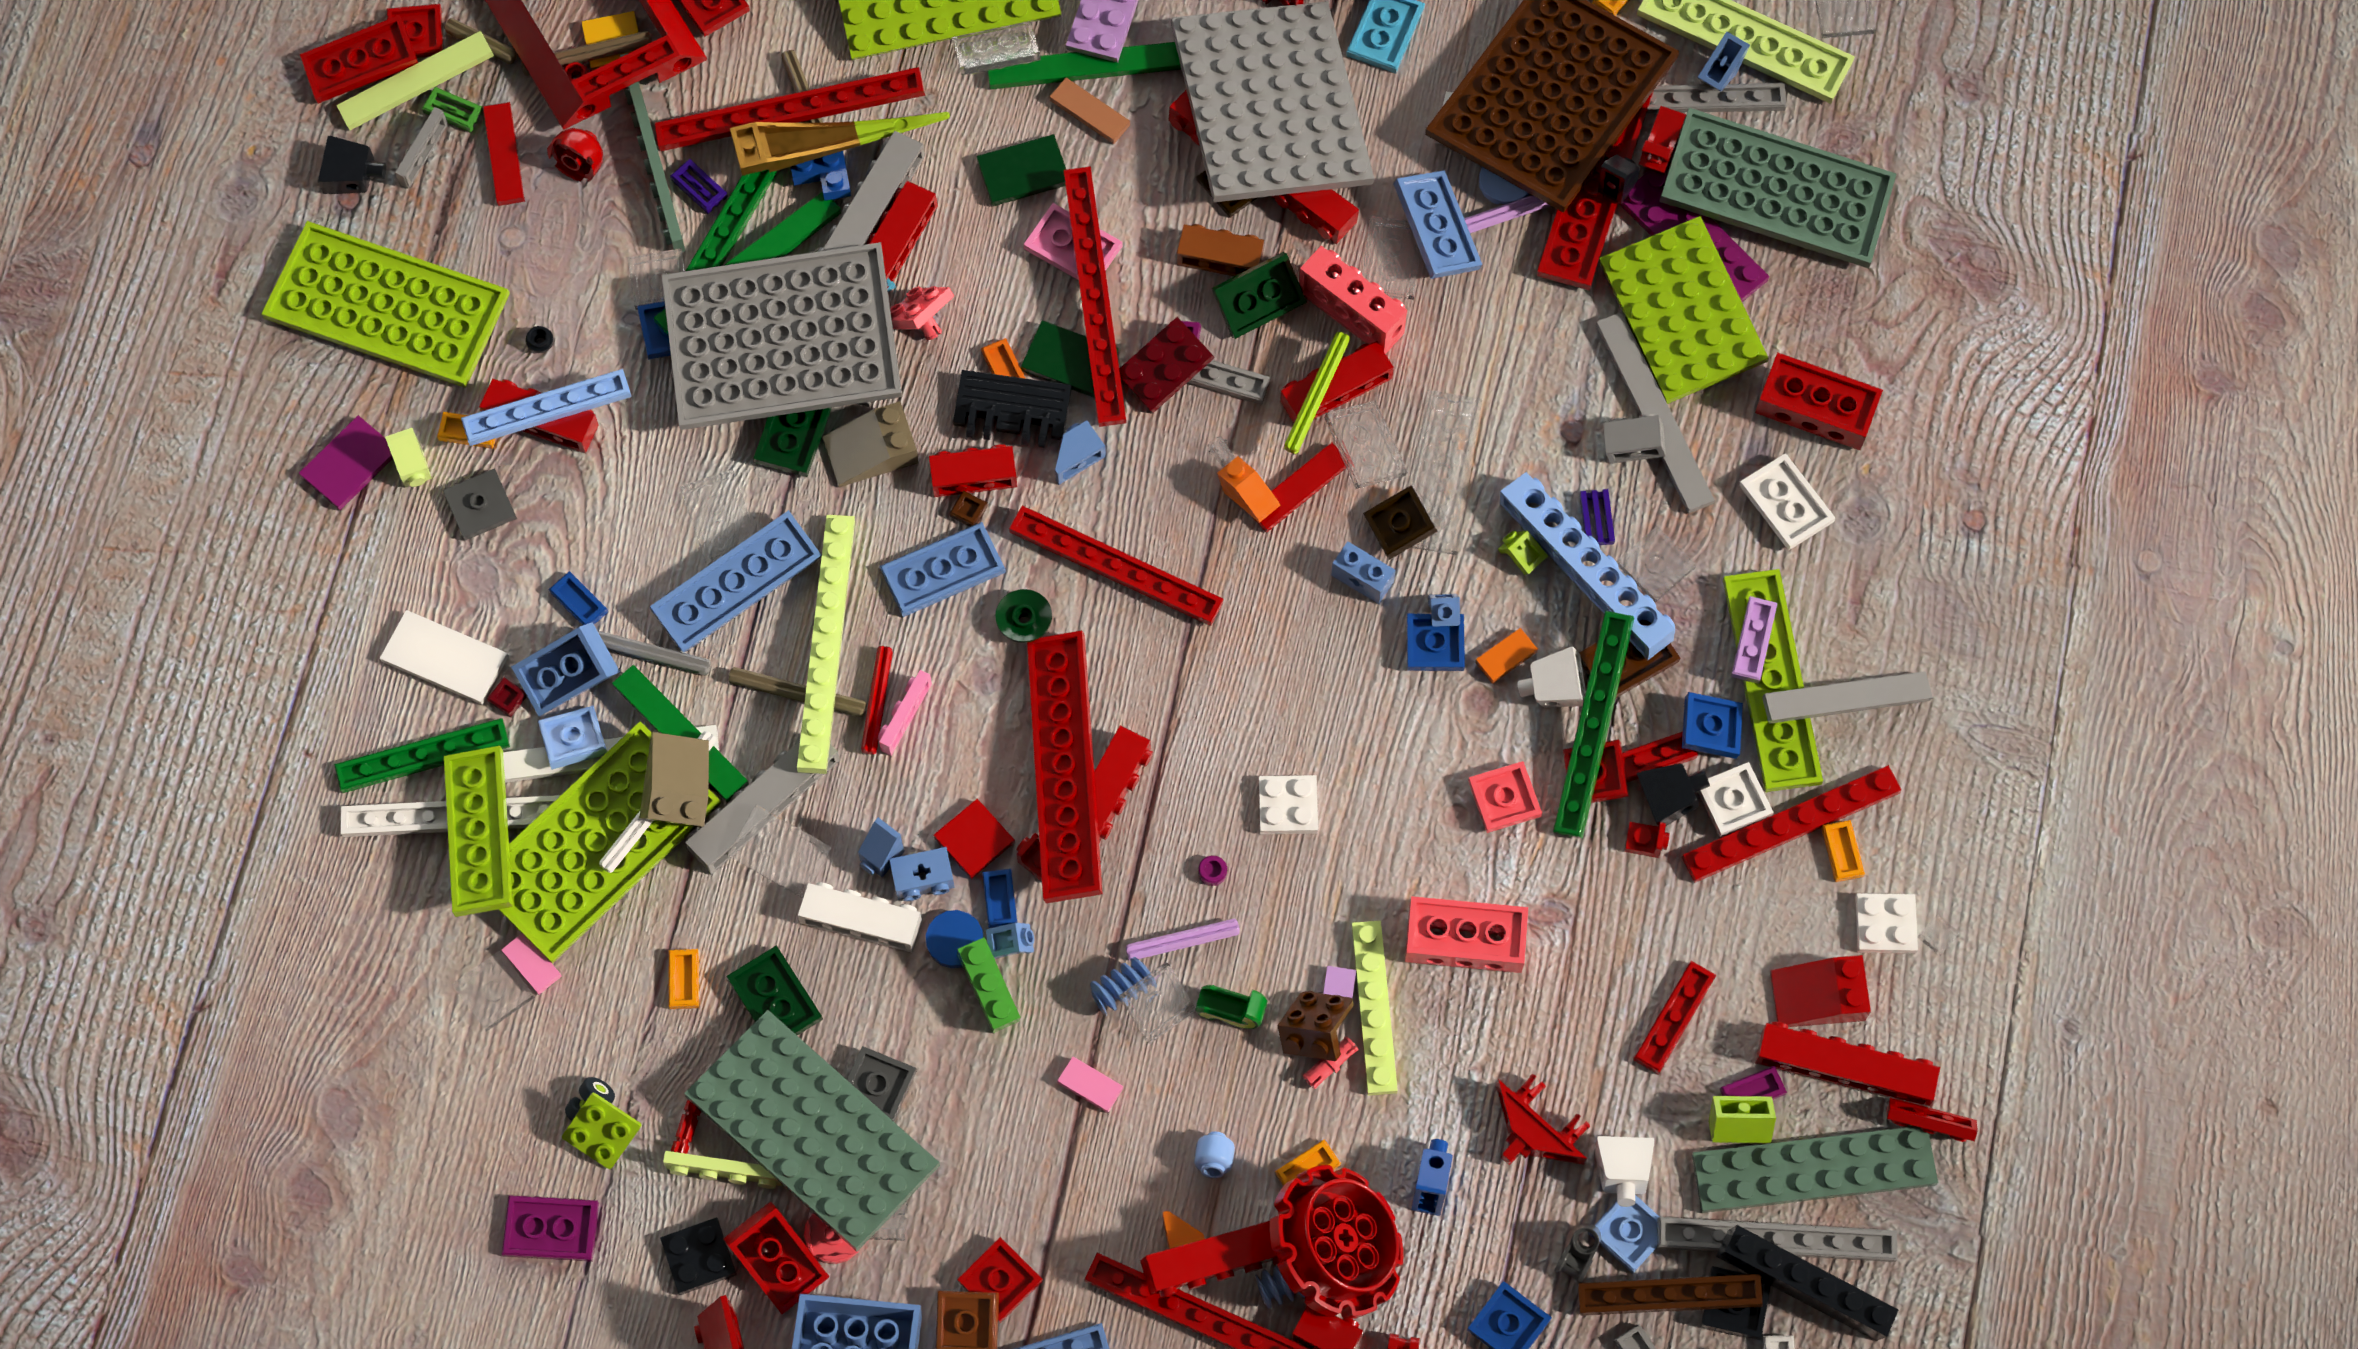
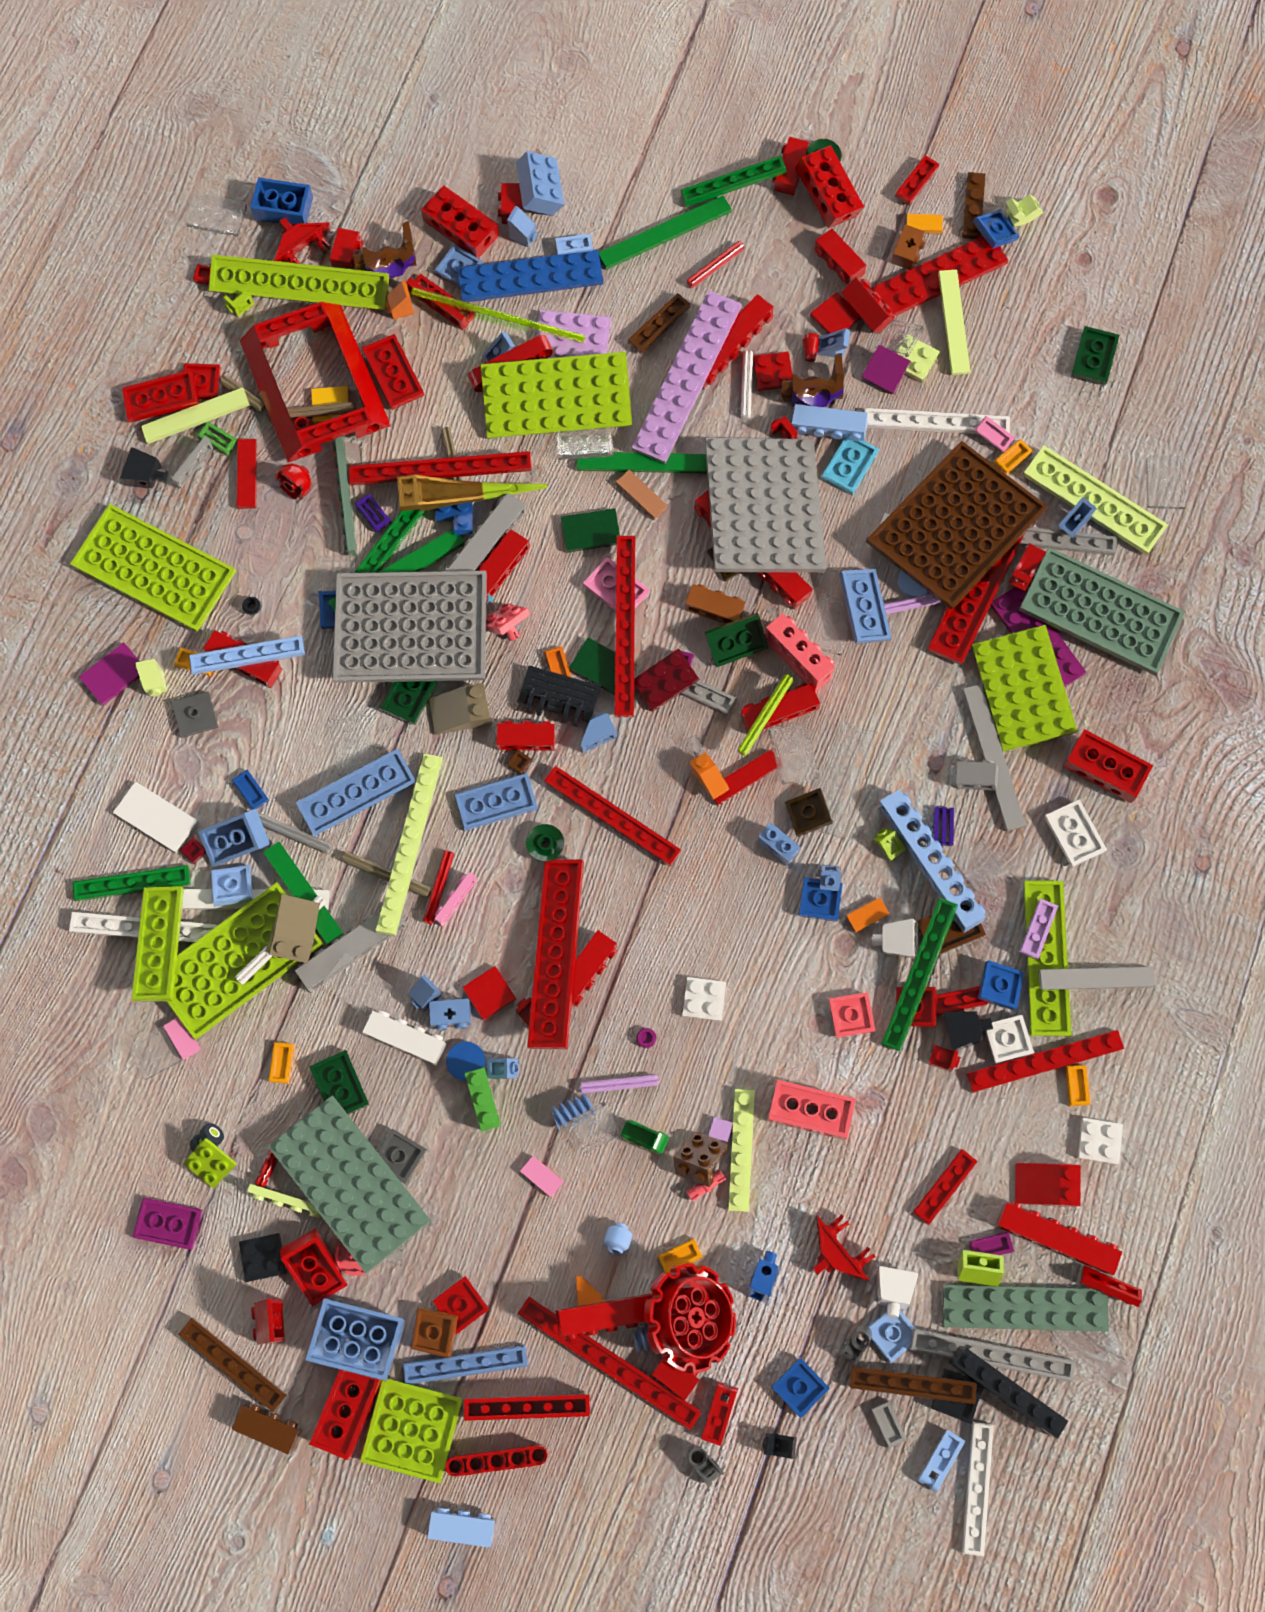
camera: 10 degrees right, 5 degrees up
(999, 897) = (500, 1038): blue tile -> none
(1618, 178) = (993, 590): black slope -> none

